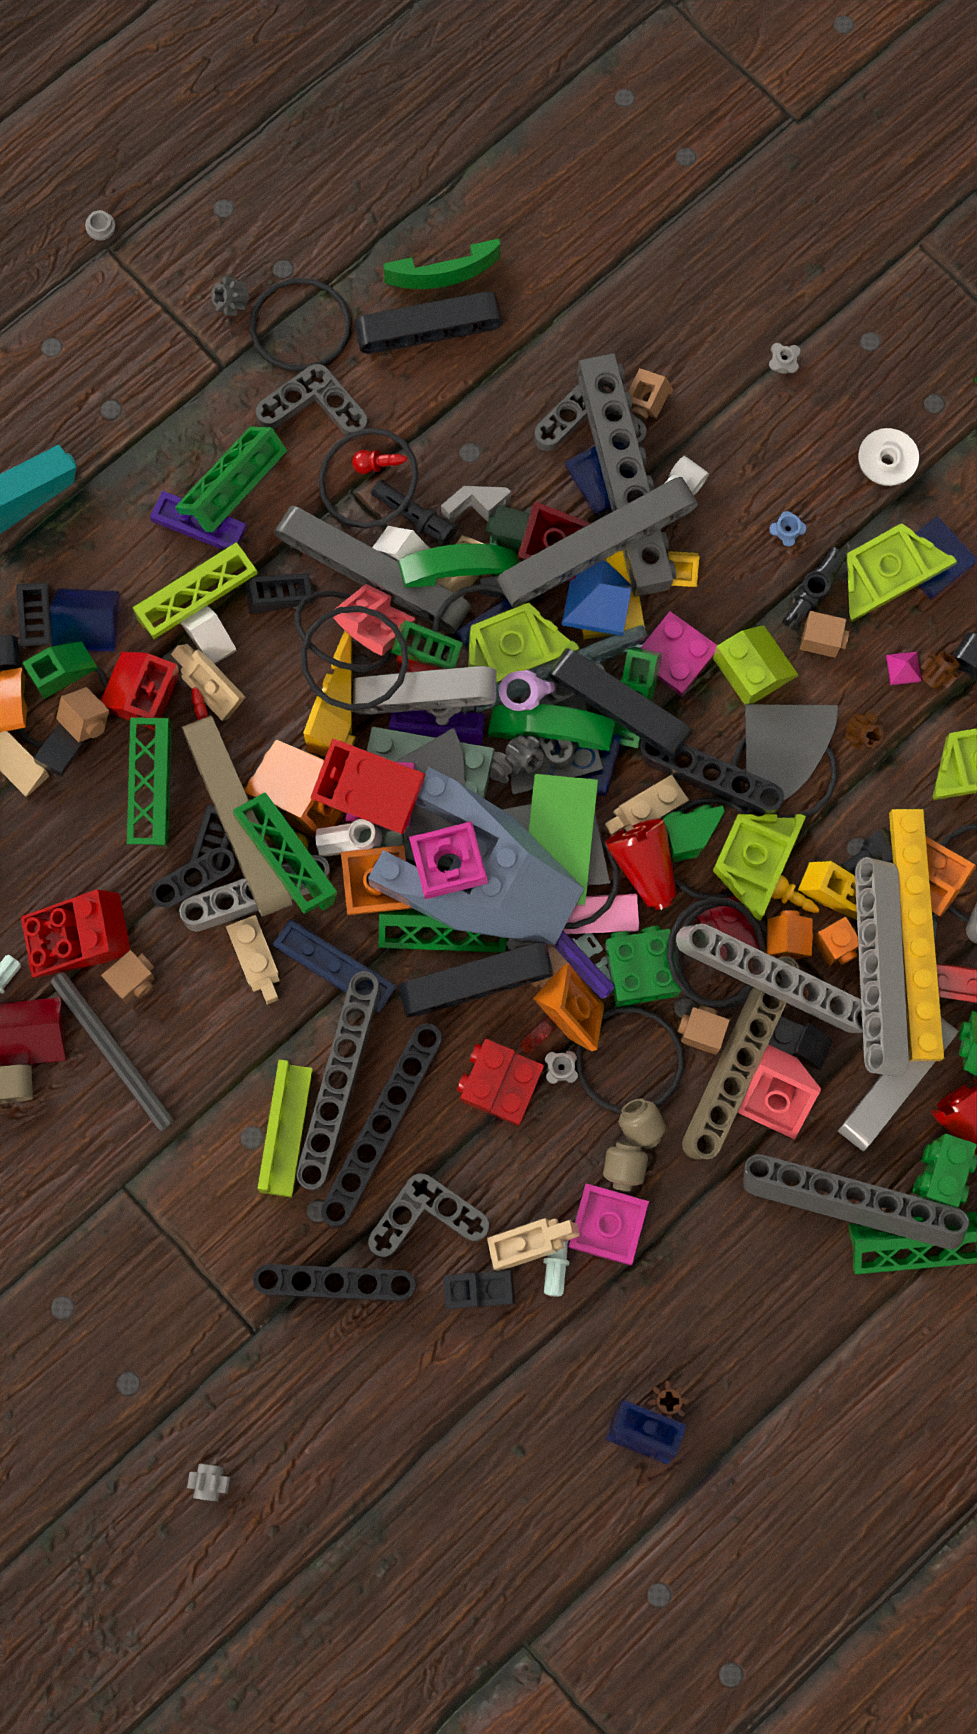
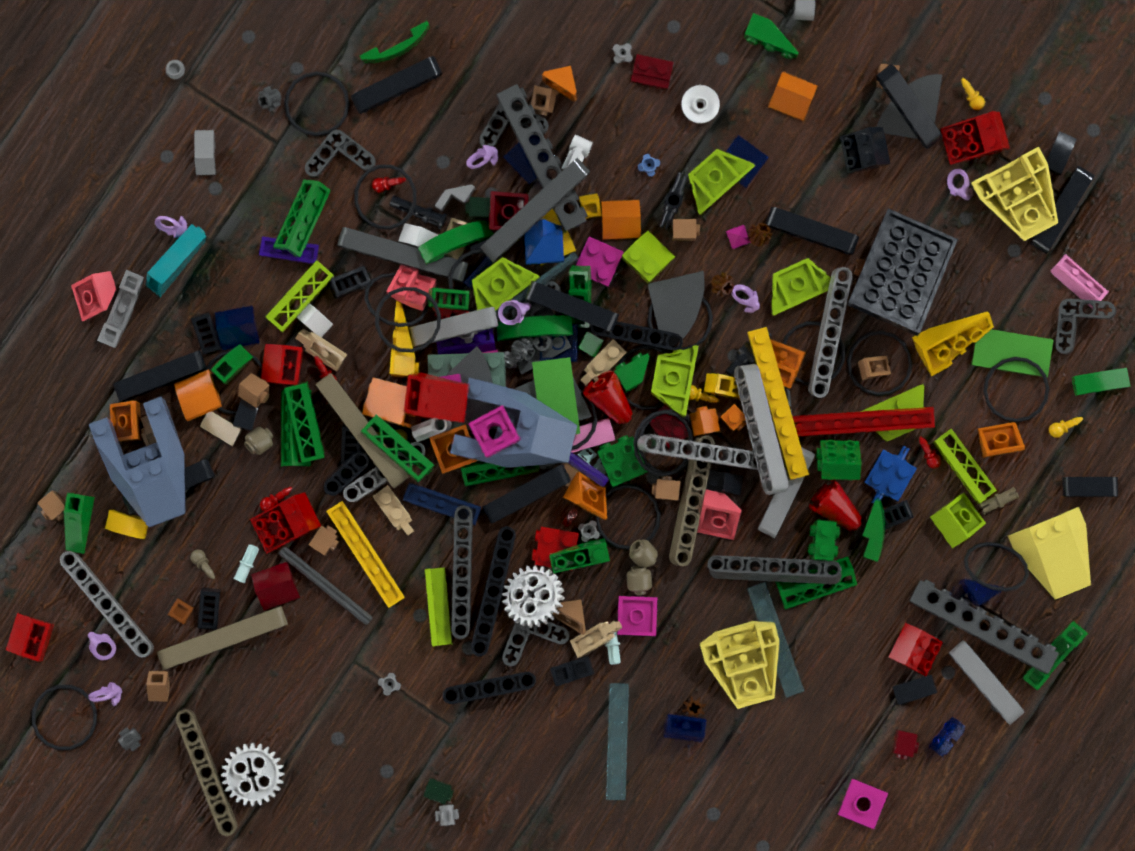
camera: 10 degrees left, 10 degrees up
(26, 452) = (176, 230): none -> lavender piece
(55, 894) = (269, 502): none -> red bar
(69, 796) = (258, 440): none -> dark tan head
(108, 349) = (204, 152): none -> light grey slope
(115, 813) = (289, 445): none -> green fence
(164, 1231) = (384, 683): none -> light grey plate
(190, 1016) = (365, 554): none -> yellow plate
(205, 1437) = (438, 791): none -> clear green brick
(433, 1126) = (543, 608): none -> white gear
(499, 1194) = (572, 615): none -> medium nougat slope
(525, 1429) = (617, 741): none -> clear light blue tile
(535, 454) = (486, 152): none -> lavender piece
(537, 1101) = (580, 556): none -> green slope
(633, 774) = (590, 344): none -> green slope
(684, 370) = (562, 81): none -> orange slope
(725, 599) = (621, 219): none -> orange slope
(771, 1344) = (744, 661): none -> light yellow wedge
(823, 396) = (652, 71): none -> dark red plate
(828, 1322) = (766, 613): none -> clear light blue tile
(895, 1646) = (854, 792): none -> dark pink piece
(906, 767) = (751, 303): none -> lavender piece

